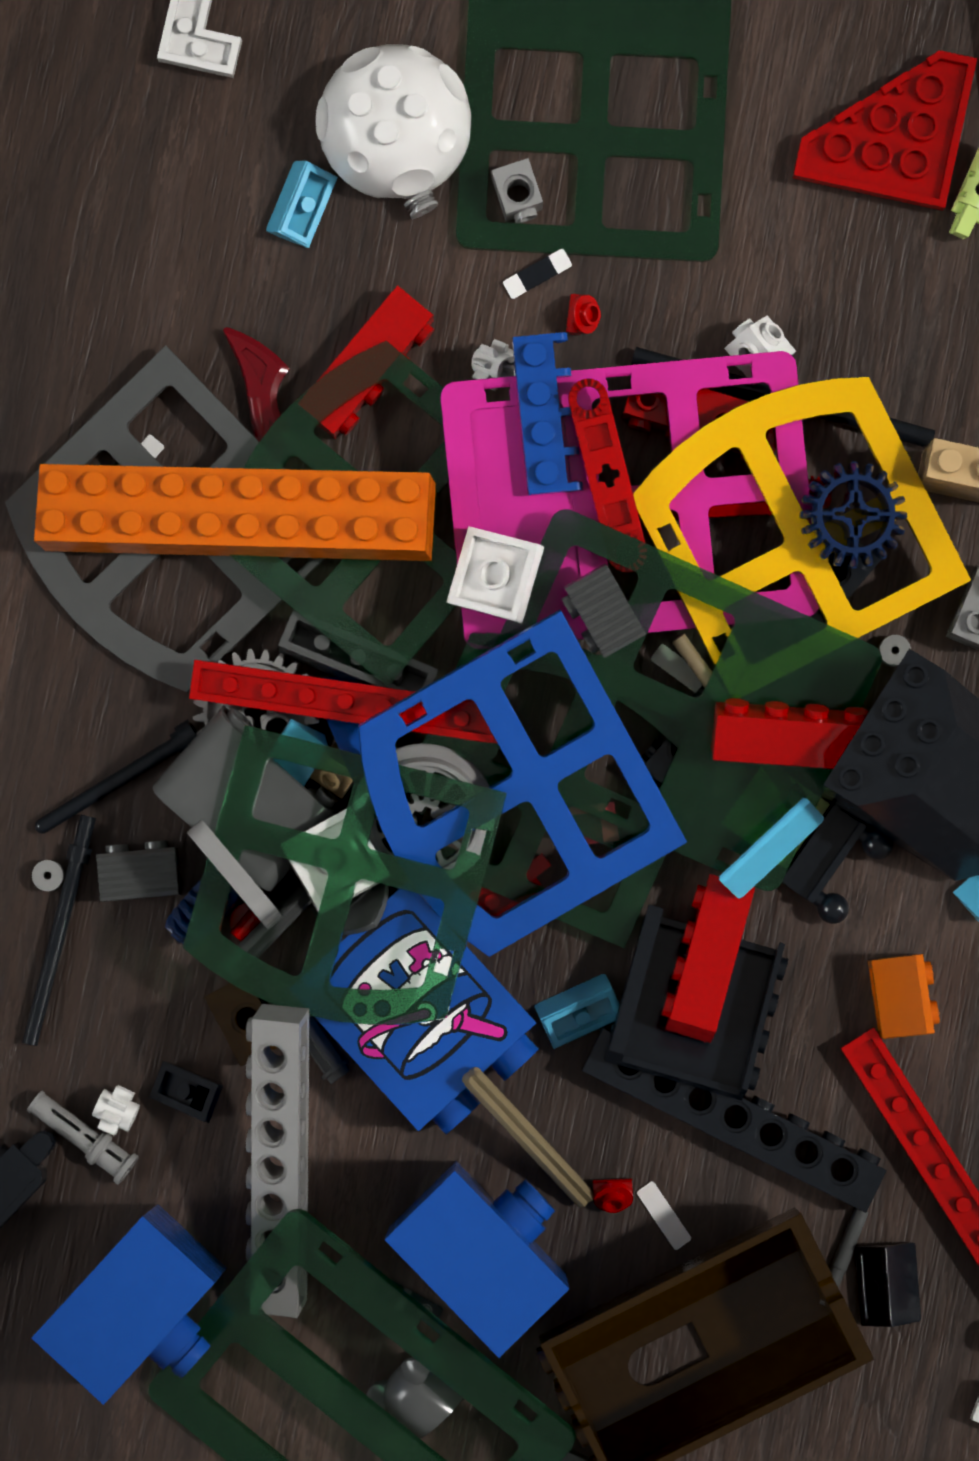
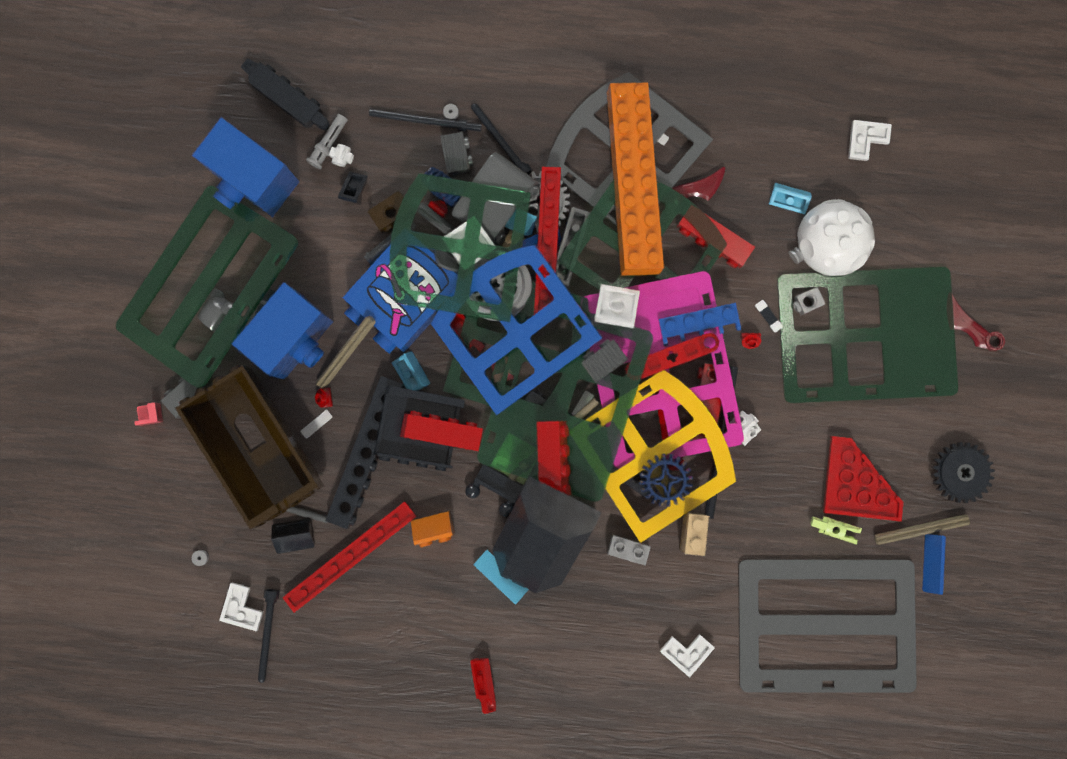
camera: 85 degrees right, 0 degrees up
(235, 874) = (445, 206): light grey beam -> none
(289, 1031) = (333, 230): light grey brick -> none
(493, 361) = (722, 297): white gear -> none
(771, 848) = (497, 456): medium azure slope -> none
(886, 646) = (606, 511): light grey piece -> none

